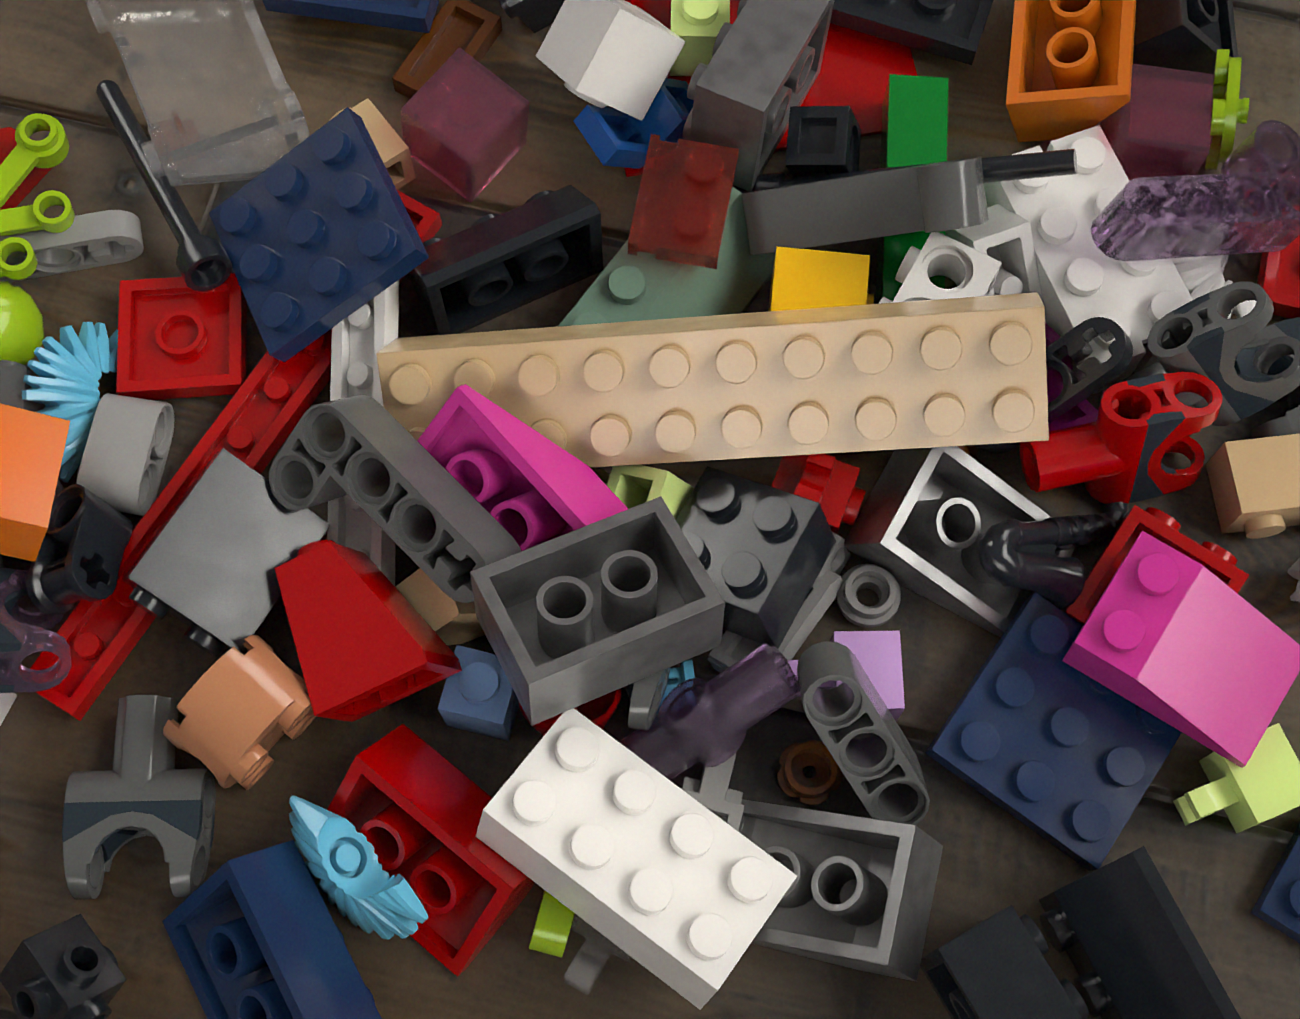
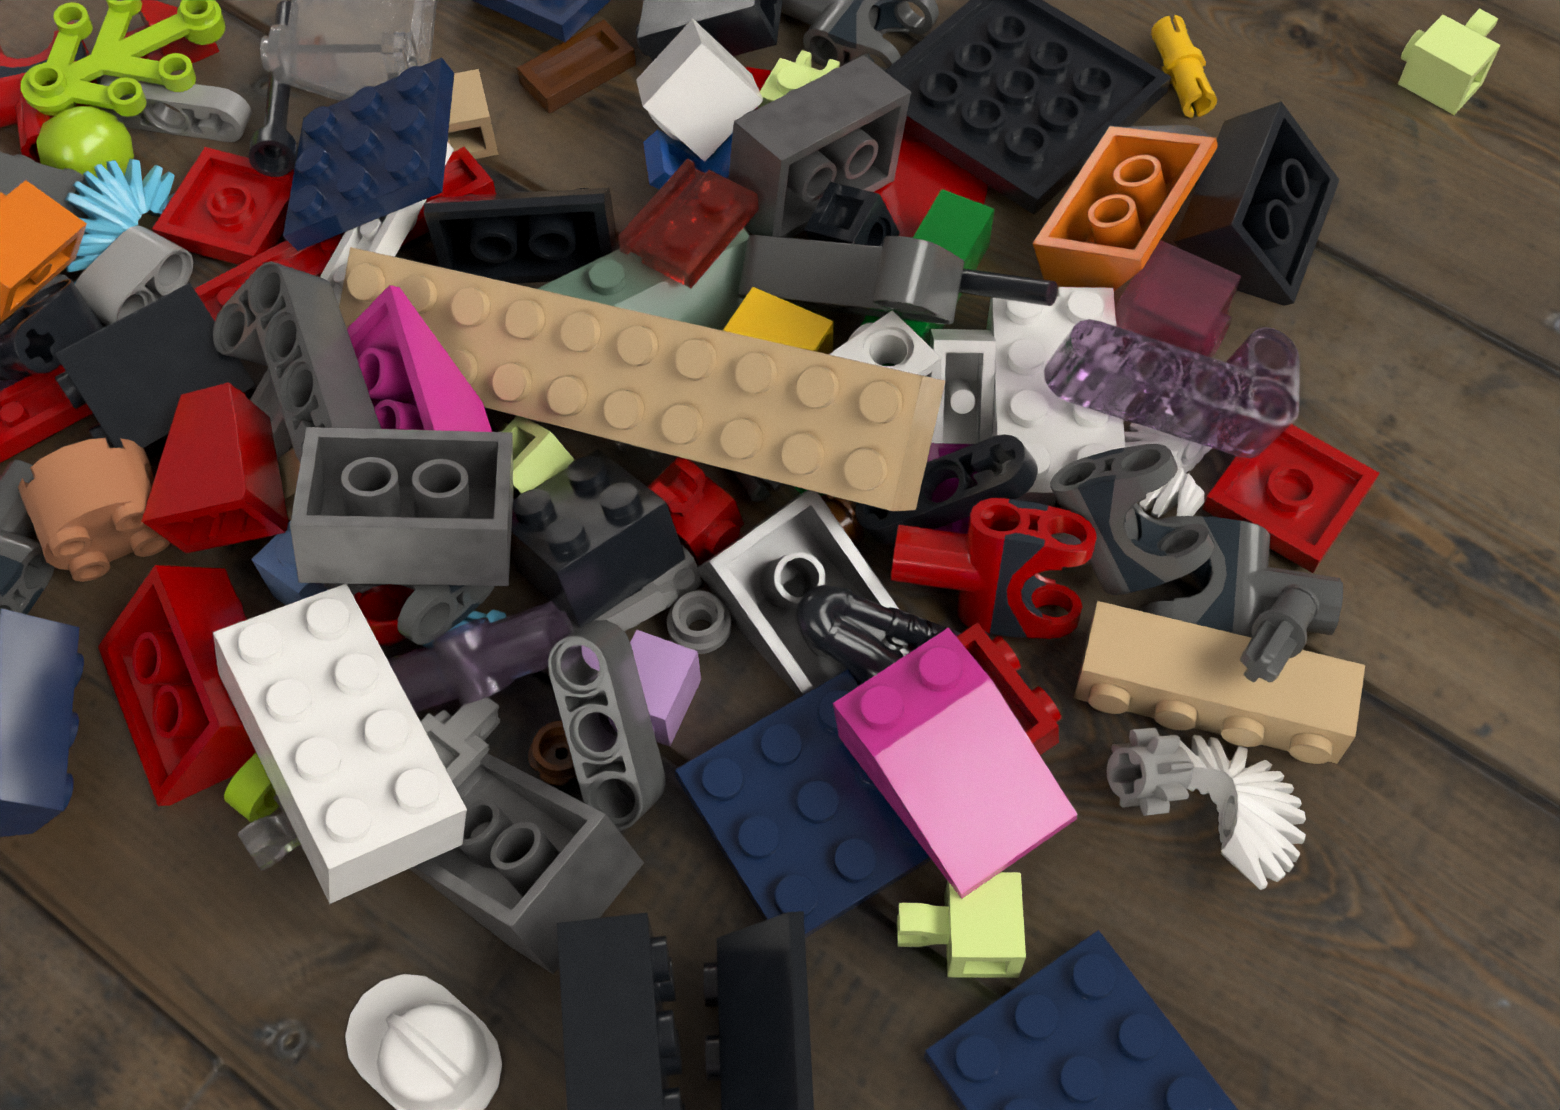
camera: 25 degrees right, 10 degrees down
(352, 873) = (109, 669): medium azure hair -> none
(465, 124) = (549, 116): clear pink head -> none
(1226, 108) = (1255, 308): lime piece -> none

